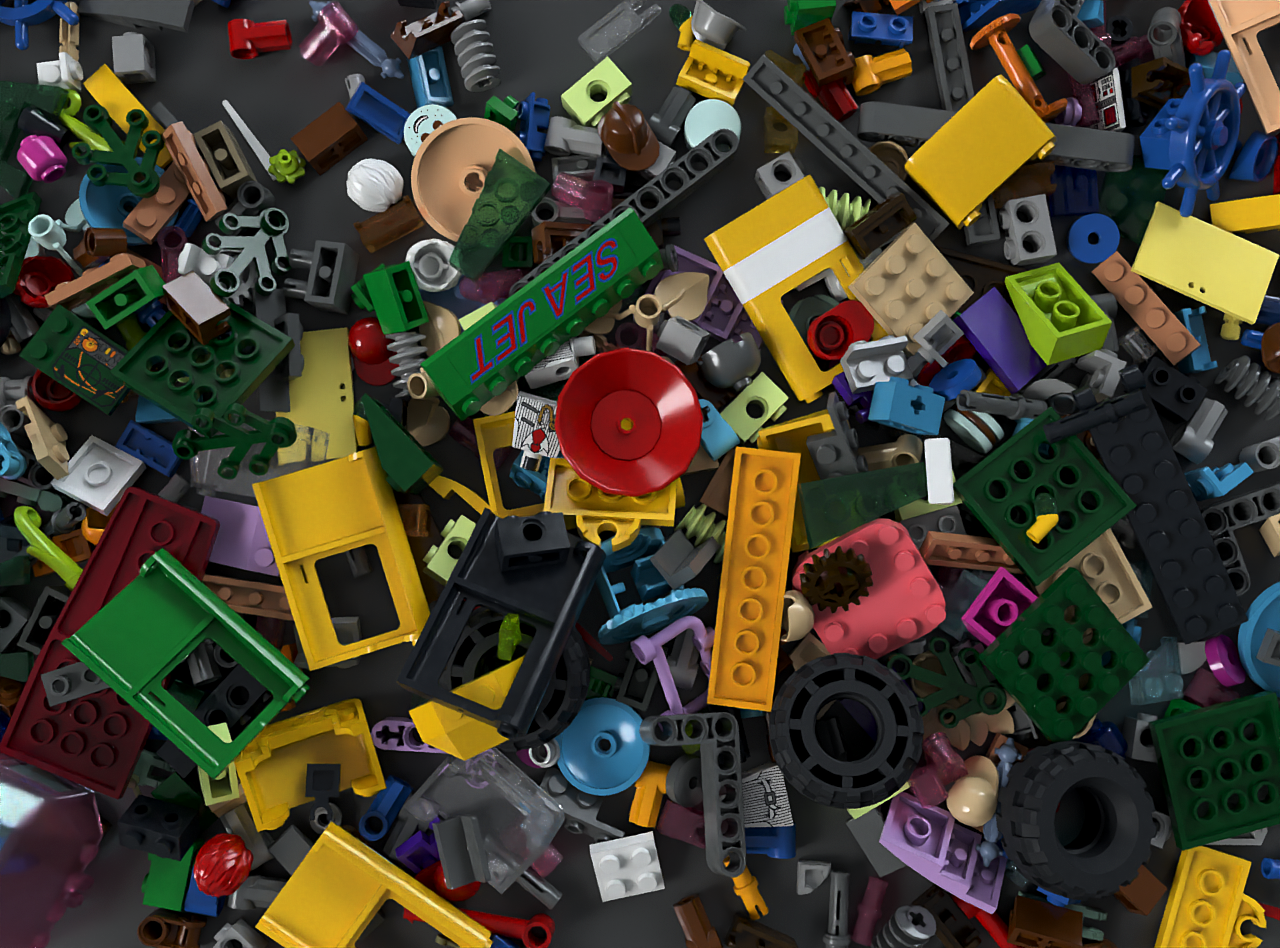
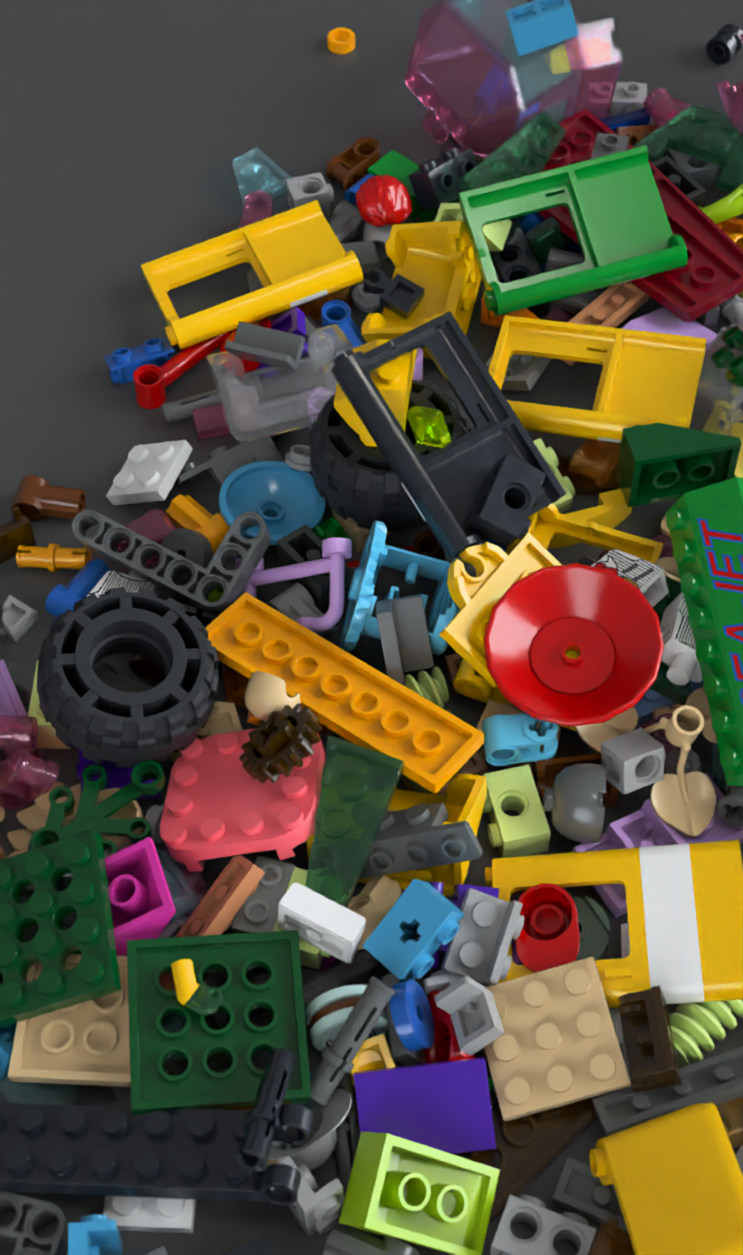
camera: 125 degrees right, 30 degrees down
(130, 767) = (519, 156): none -> clear green wing

